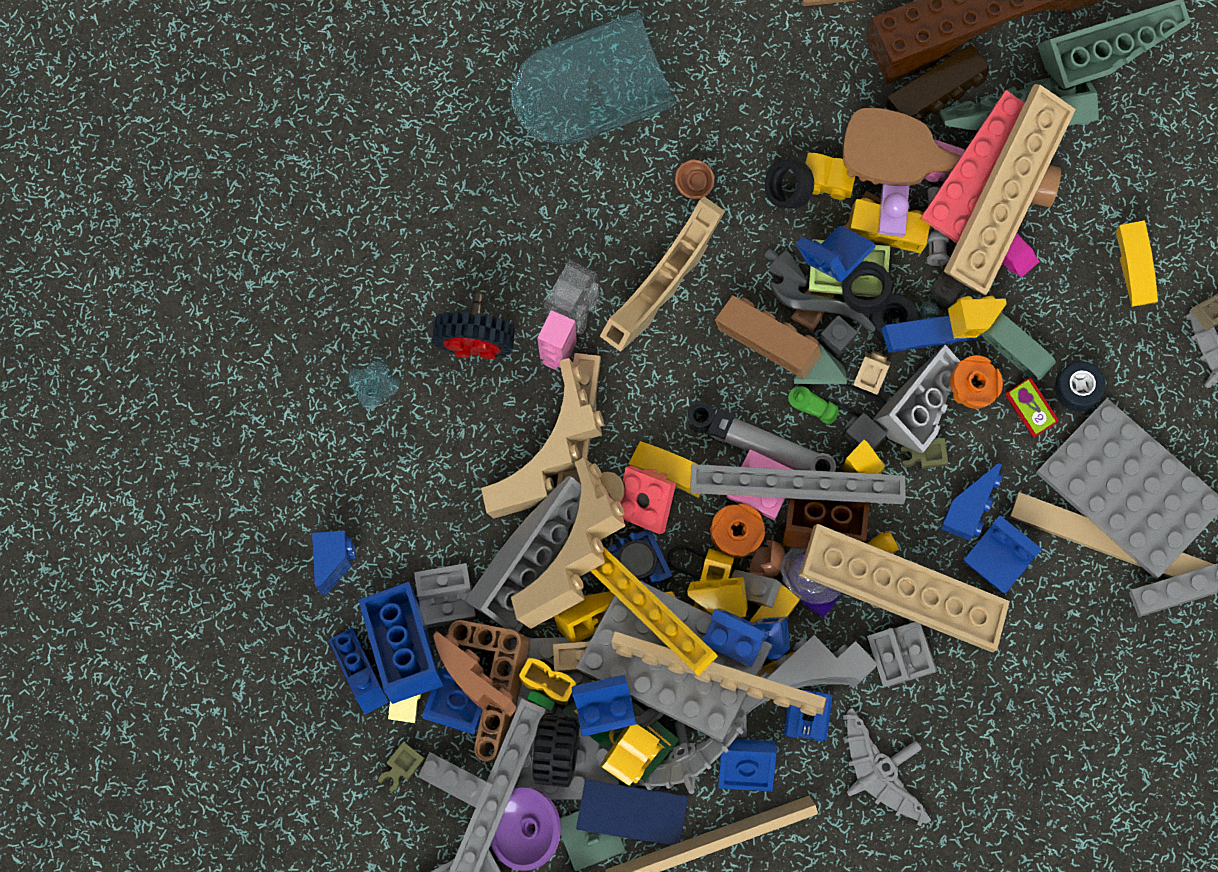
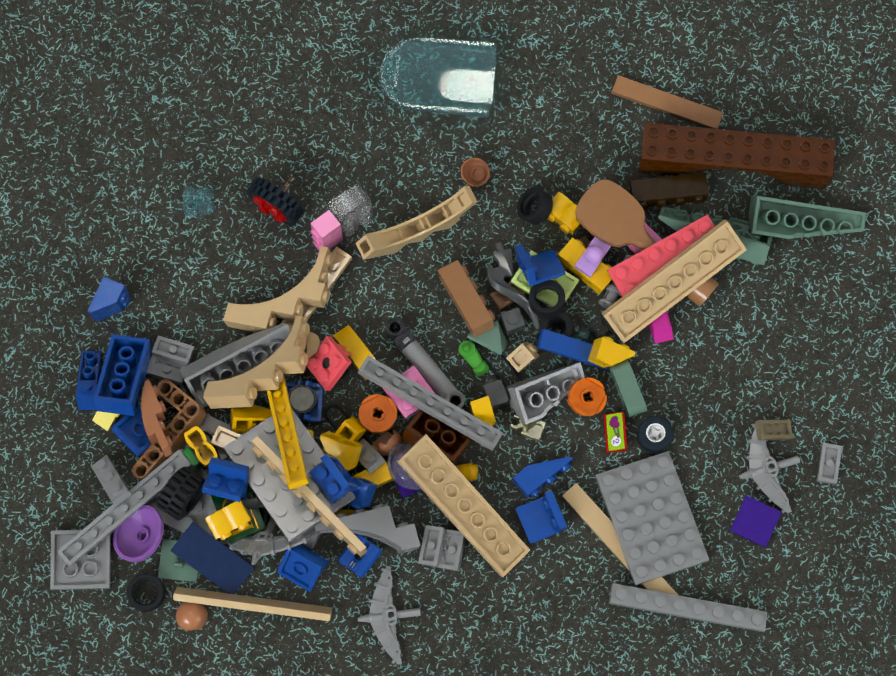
camera: 25 degrees right, 0 degrees up
(403, 763) = (85, 453): olive plate -> none
(1137, 263) = (738, 373): yellow slope -> none

